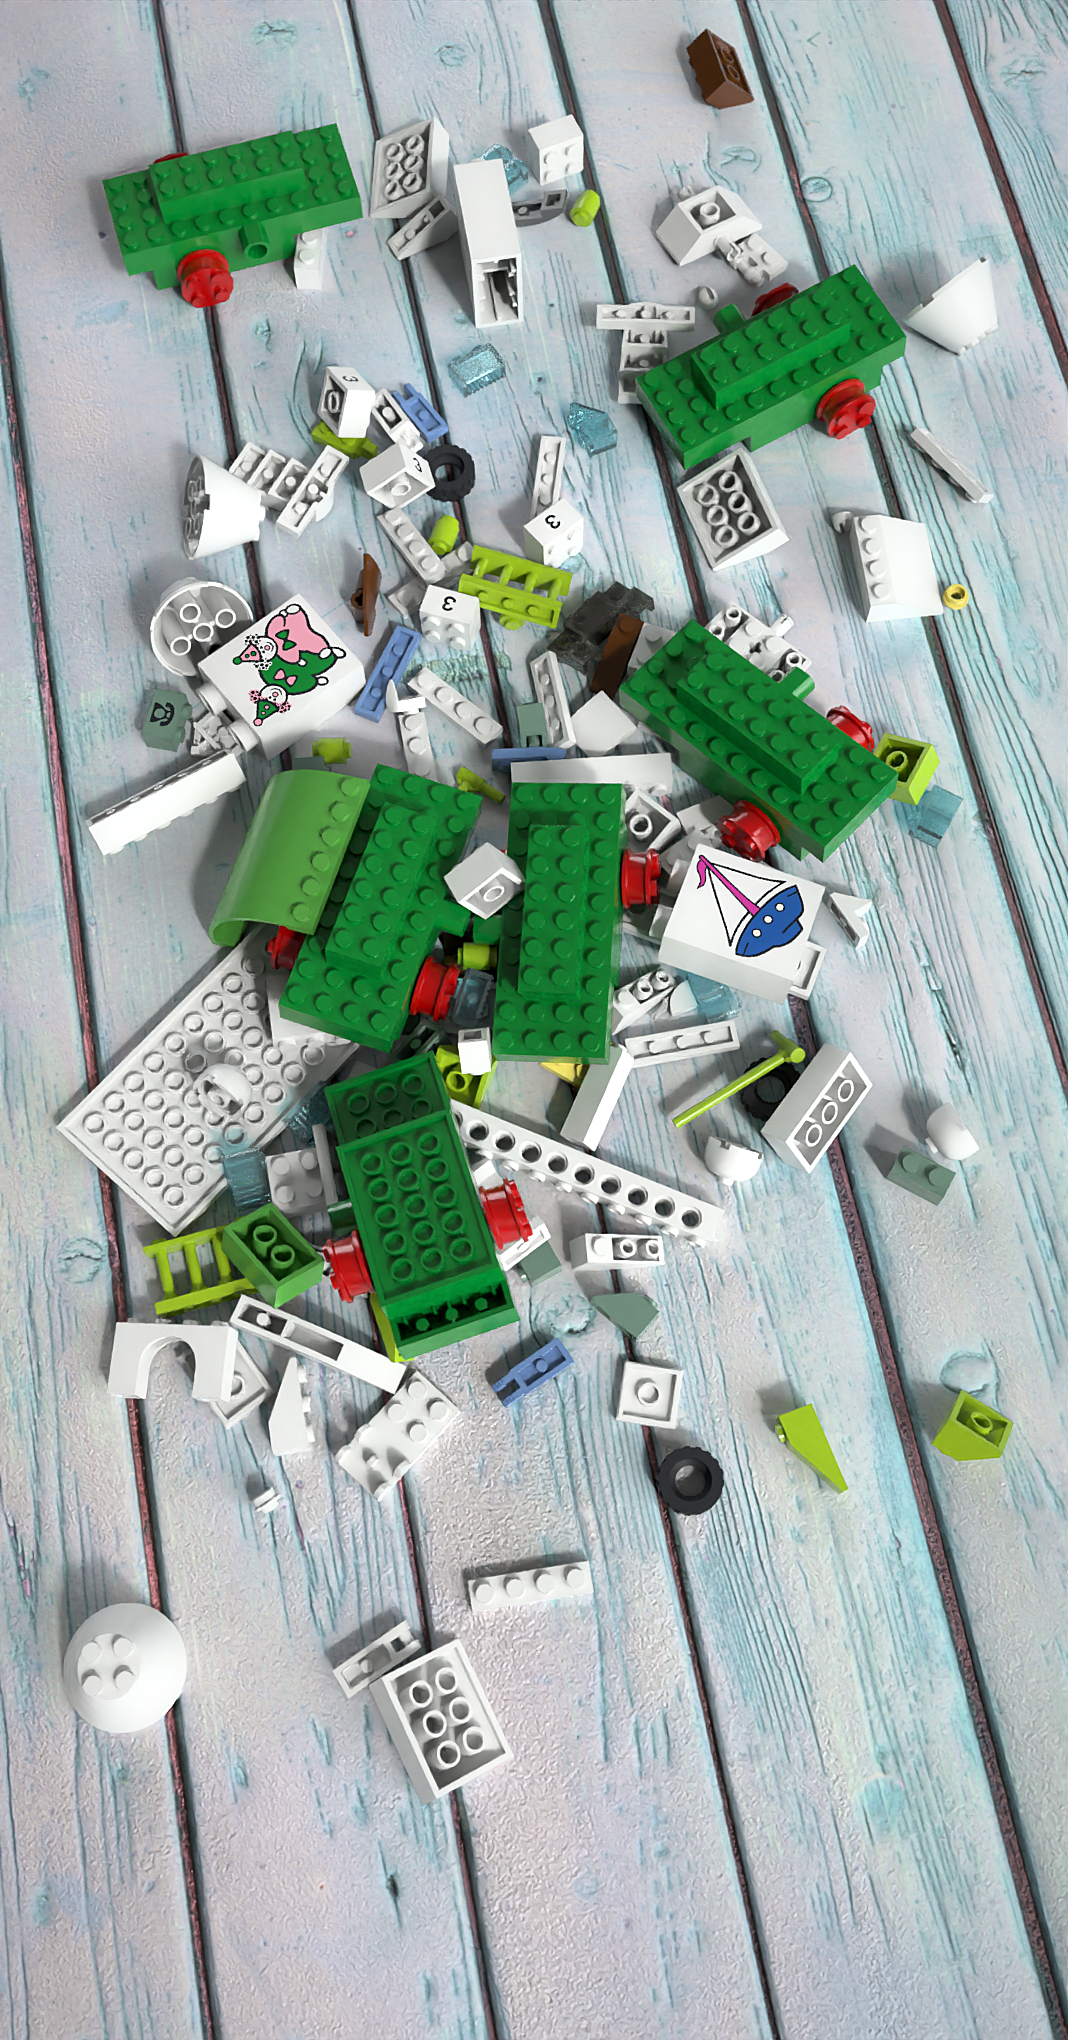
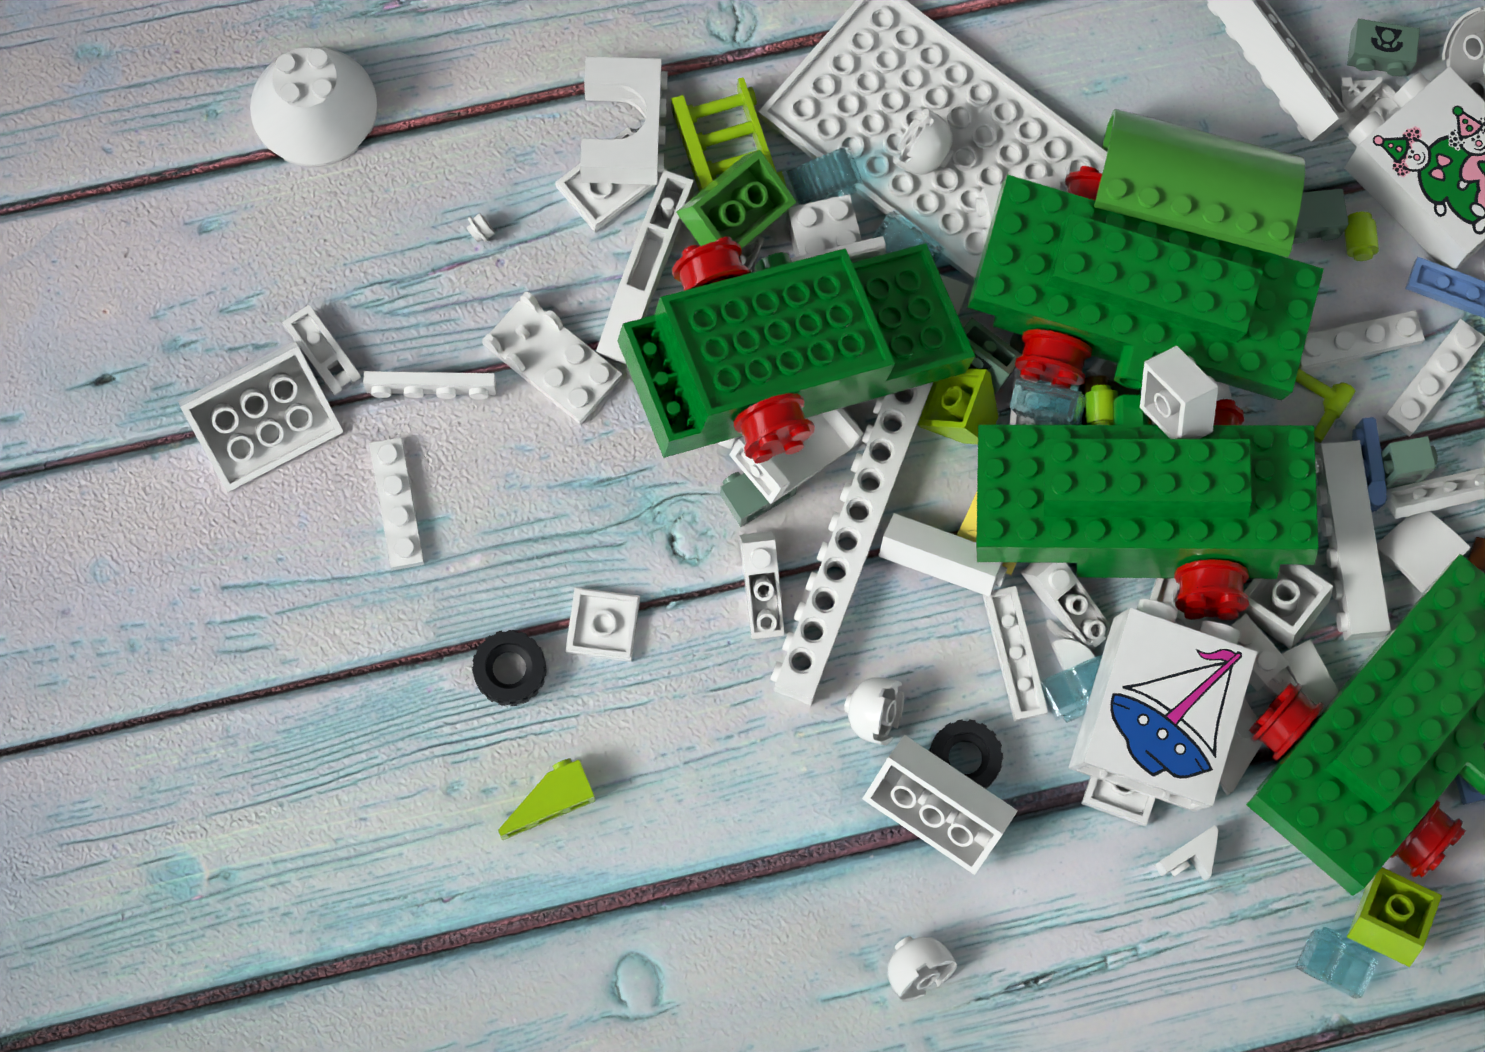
camera: 80 degrees right, 5 degrees up
(289, 1419) = (568, 244): white slope -> none
(407, 704) = (1430, 316): white plate -> none
(418, 1564) = (418, 383): none -> white plate
(475, 1050) = (981, 403): white slope -> none
(535, 1371) = (625, 499): medium blue hinge -> none
(628, 1312) = (692, 597): sand green slope -> none
(787, 1051) = (1005, 771): lime bar -> none
(920, 1175) = (866, 930): sand green brick -> none
(972, 1430) = (571, 982): lime slope -> none

